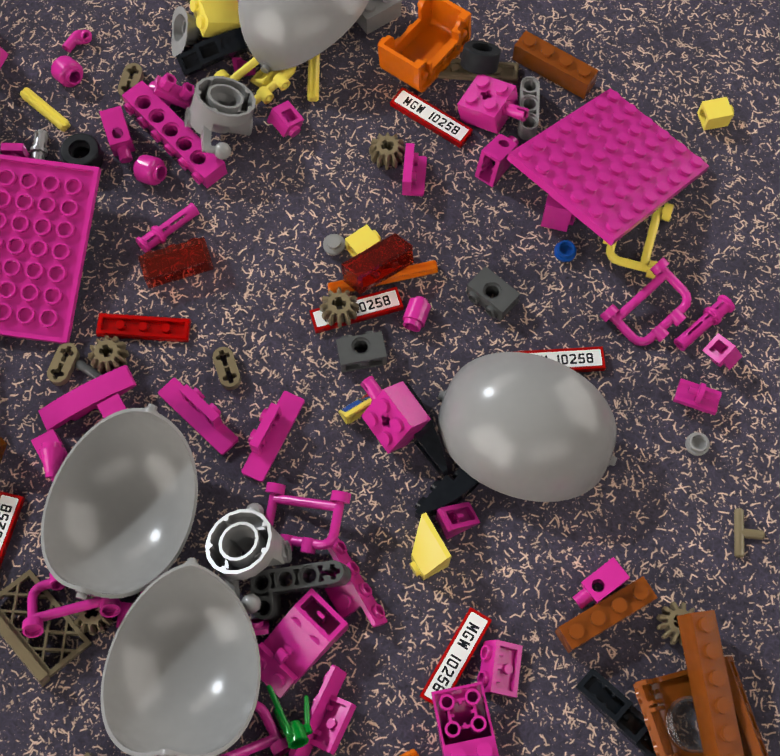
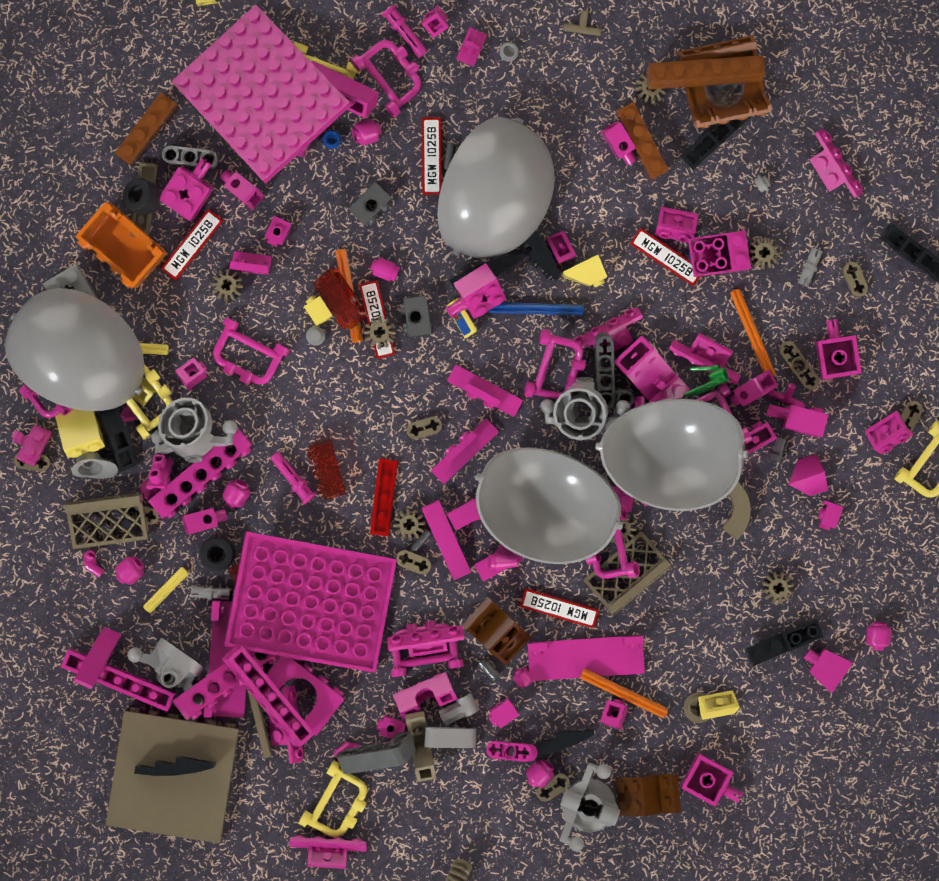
camera: 80 degrees left, 20 degrees up
(138, 44) = (103, 504): none -> dark tan fence
(294, 160) = (230, 368): none -> dark pink bar
(378, 482) = (538, 308): none -> blue axle
(452, 198) = (284, 227): none -> dark pink brick
(578, 285) = (366, 132): none -> dark pink head
(622, 258) = (360, 96): none -> dark pink brick

